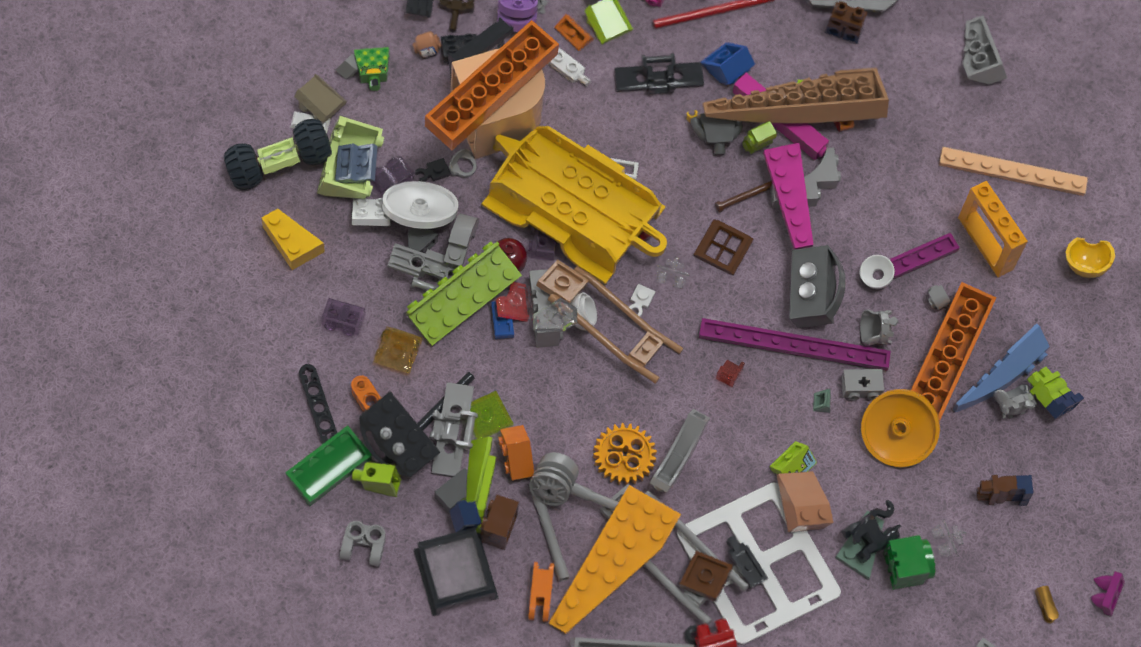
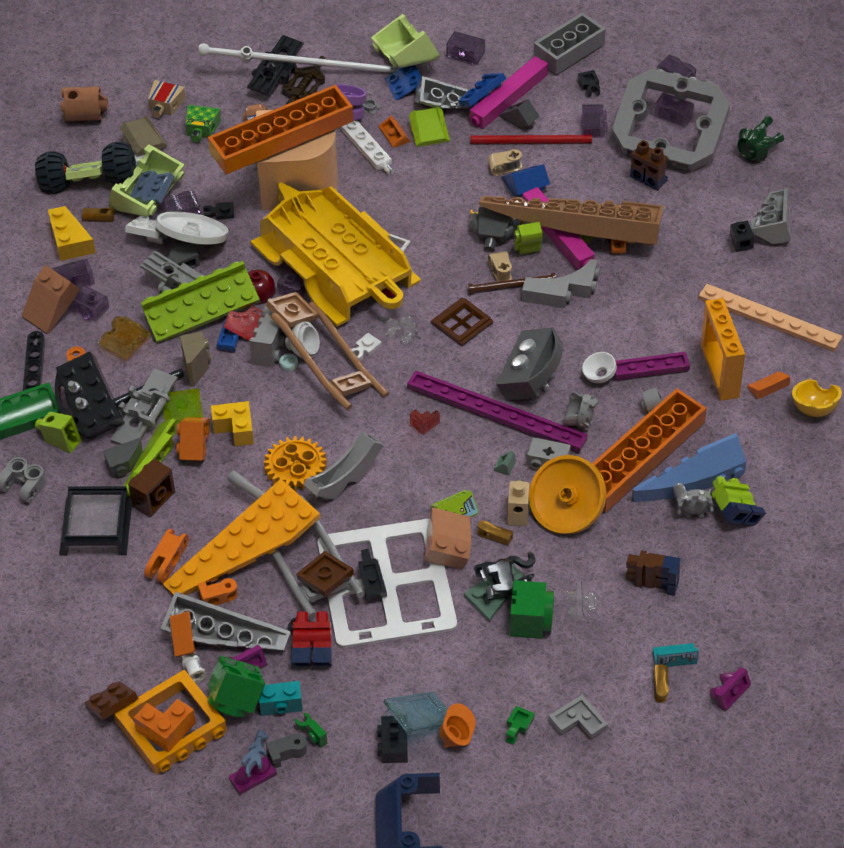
camera: 25 degrees right, 15 degrees down
(242, 73) = (83, 103): none -> nougat cylinder
(306, 206) = (98, 214): none -> pearl gold bar
(307, 327) = (48, 299): none -> nougat slope
(317, 289) = (76, 272): none -> clear purple brick
(323, 44) = (165, 98): none -> tan torso
(348, 67) = (178, 118): light grey slope -> none
(454, 168) = (251, 201): light grey piece -> none
(459, 240) = (215, 255): light grey arch -> none
(465, 515) = (120, 473): dark blue brick -> none
(481, 358) = (195, 356): none -> dark tan slope
(549, 418) = (235, 419): none -> yellow brick
(553, 479) = (215, 462): light grey wheel -> none
(555, 317) = (271, 329): clear slope -> none
(559, 563) = (199, 486): light grey piece -> none
(572, 337) = (288, 362): none -> light aqua tile
(606, 619) = (218, 592): none -> orange leg
(659, 81) = (458, 183): black piece -> none
(700, 46) = (503, 162): none -> tan piece
(740, 173) = (500, 266): none -> tan piece
(789, 184) = (540, 282): dark pink wing -> none
(842, 482) = (494, 532): none -> pearl gold bar
(853, 443) = (518, 498): none -> tan torso
(959, 83) = (741, 235): none -> black brick
(1037, 248) = (769, 384): none -> orange slope
(1049, 570) = (676, 655): none -> teal panel

